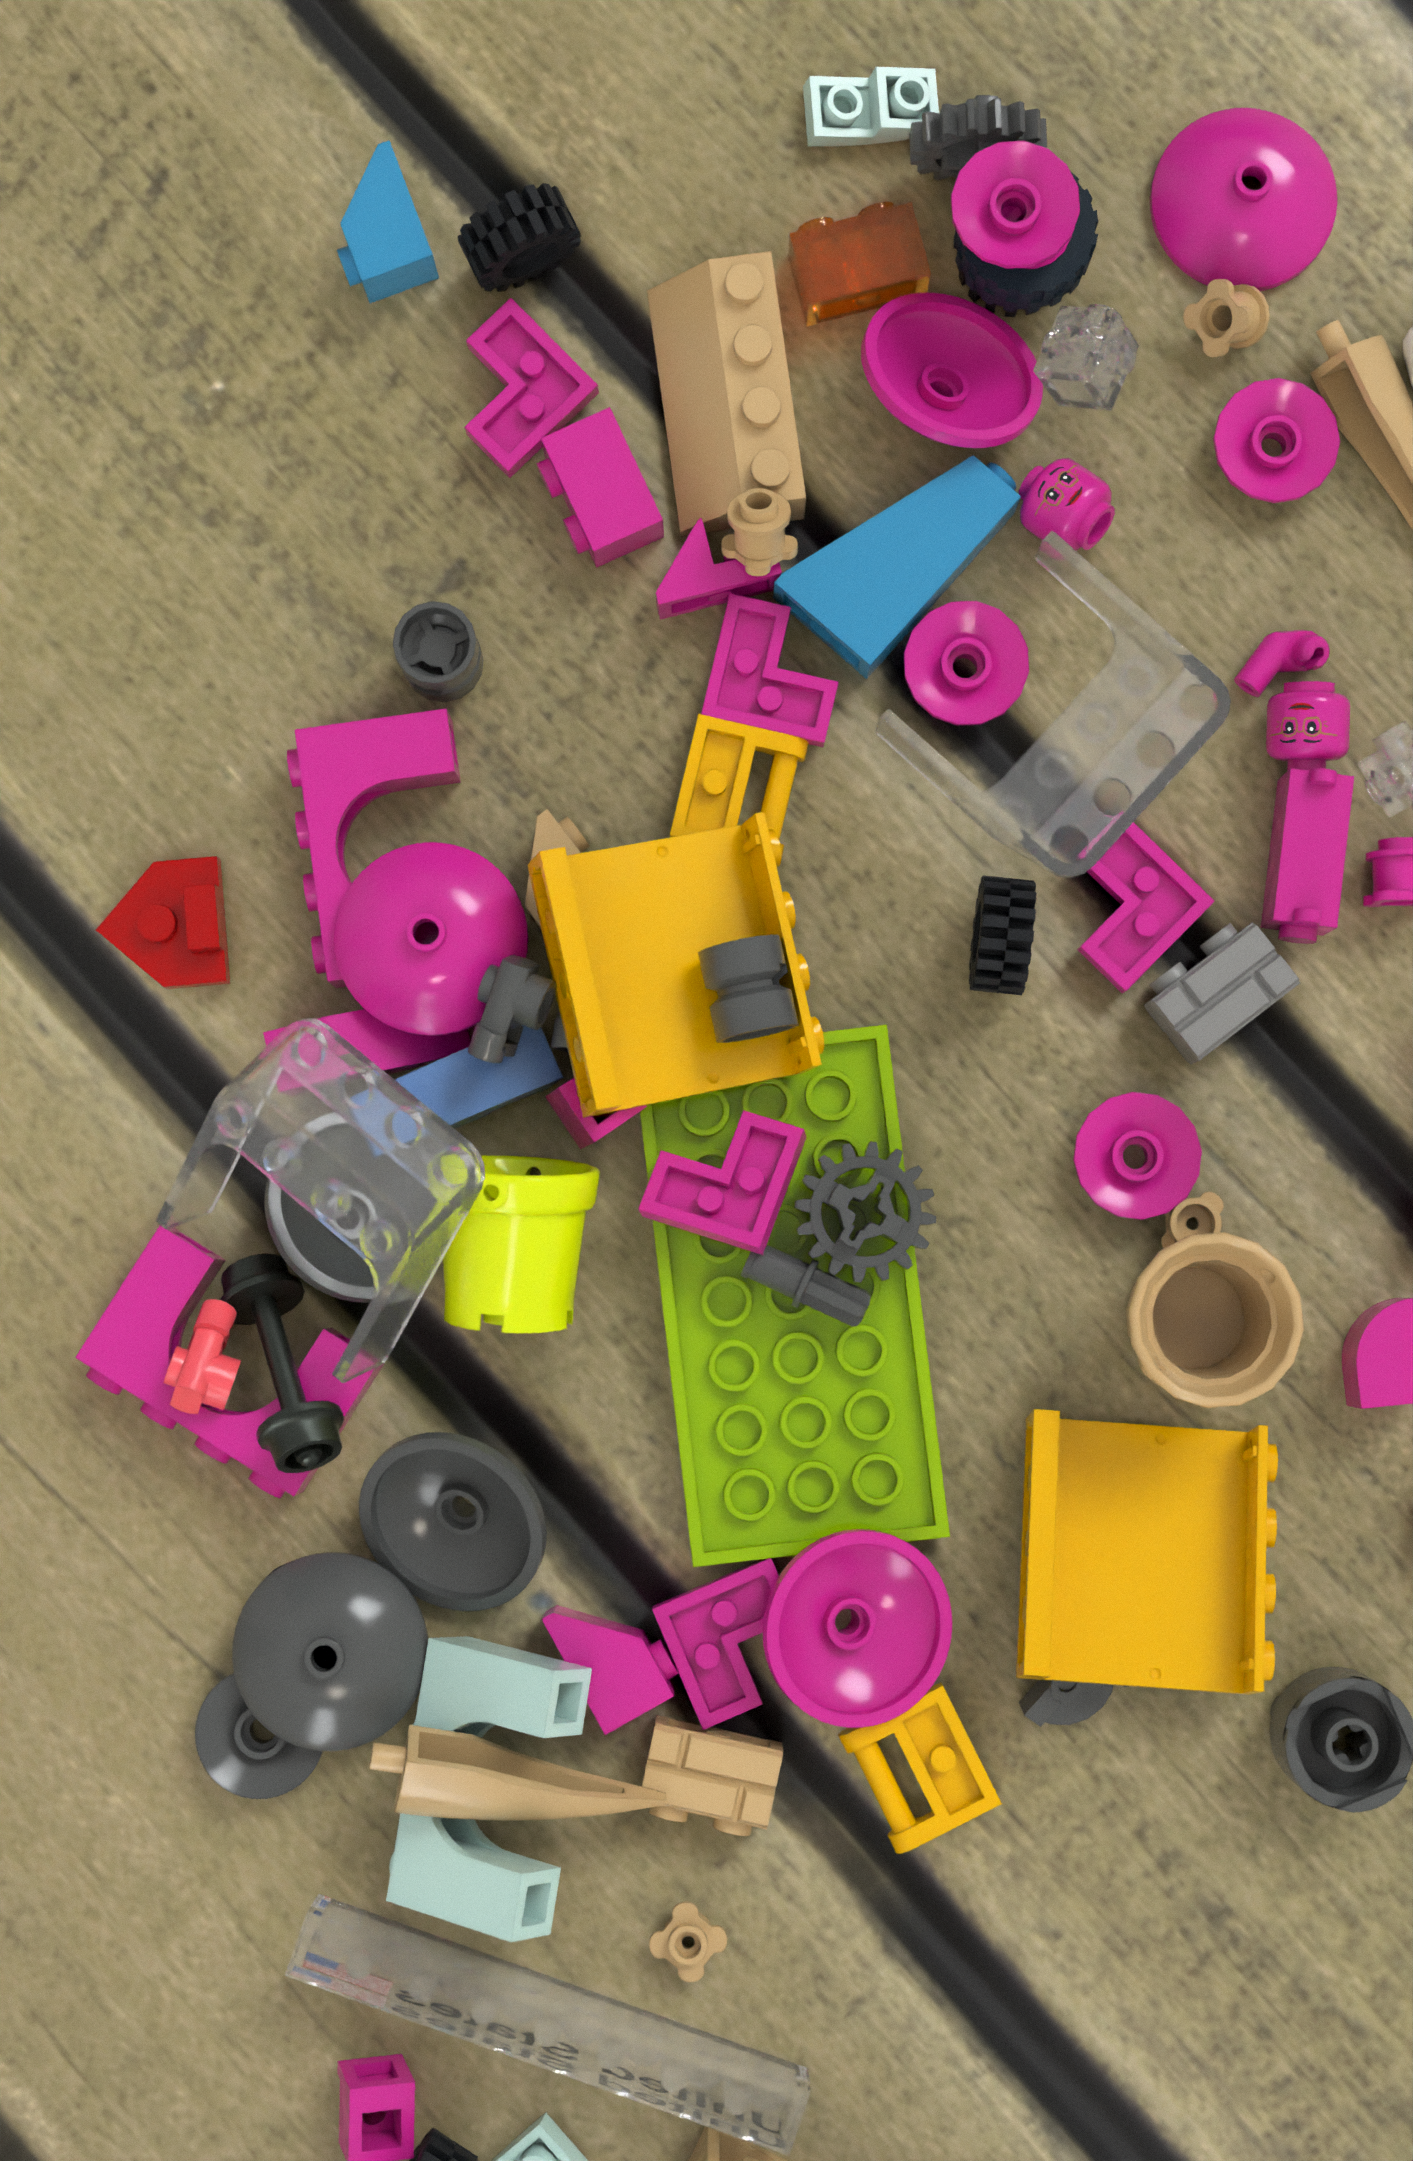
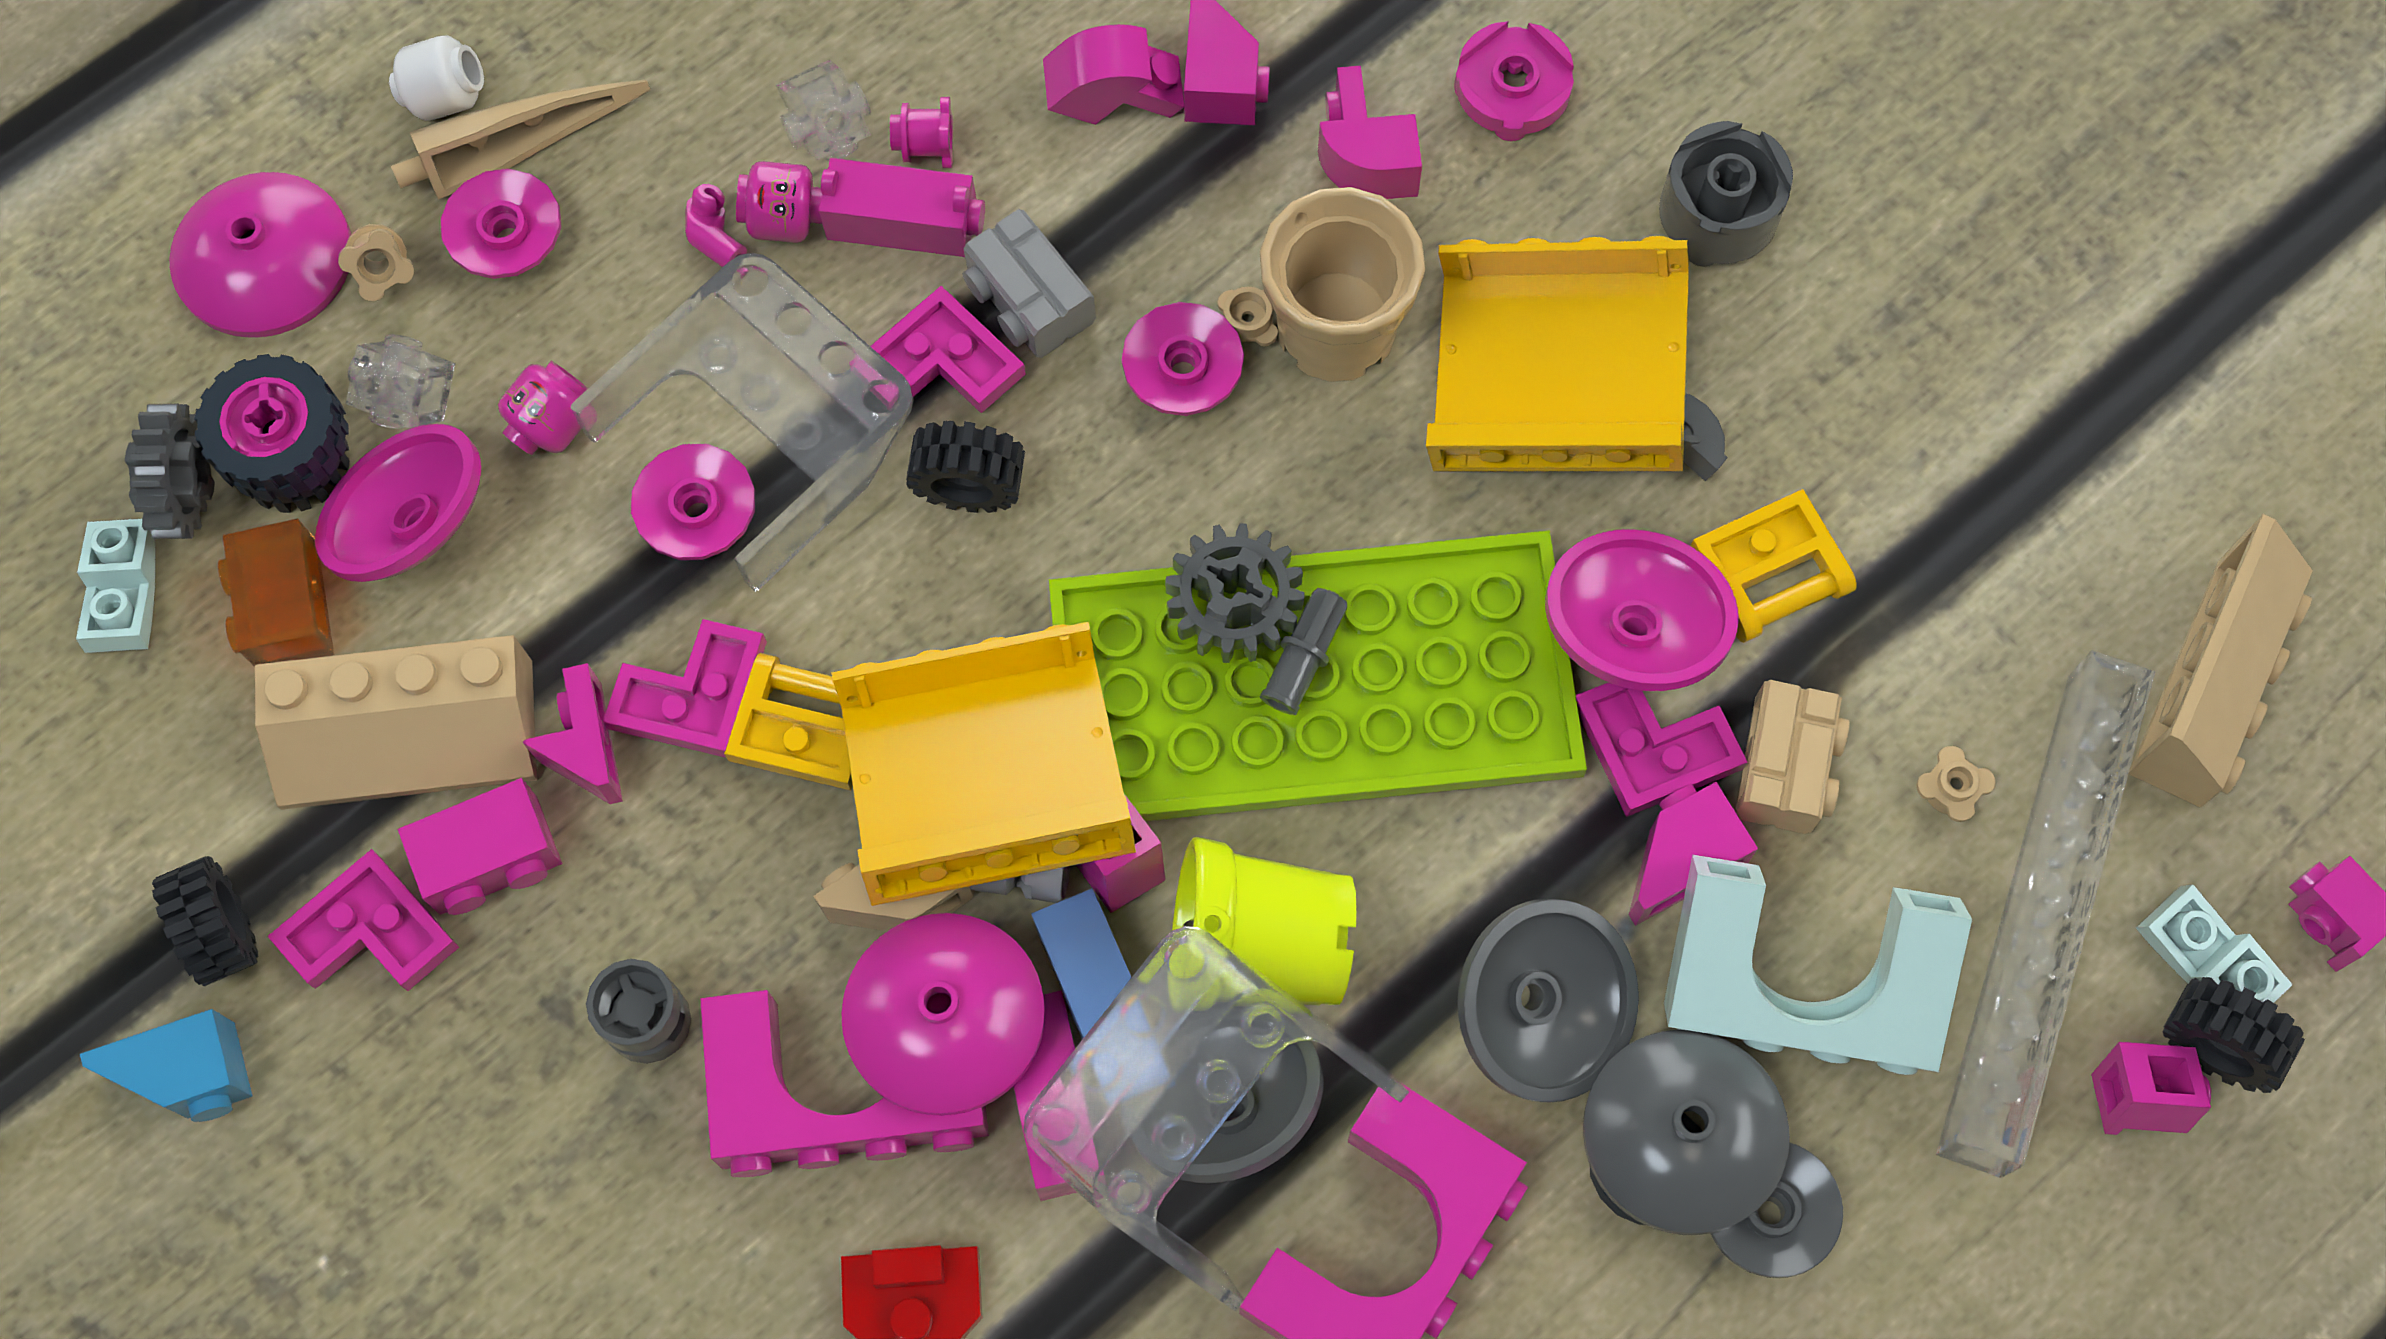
camera: 90 degrees left, 15 degrees down
(201, 1370) = (1388, 1260): coral plate -> none
(302, 1432) = (1311, 1205): pearl dark grey piece -> none
(478, 1780) = (1810, 969): tan piece -> none
(512, 999) = (1009, 915): dark grey plate -> none
(731, 1202) = (1223, 719): dark pink plate -> none
(748, 988) = (1009, 688): dark grey wheel -> none
(759, 531) = (543, 677): tan brick -> none
(892, 568) = (597, 570): dark azure slope -> none
(1019, 177) = (227, 400): dark pink dish -> none

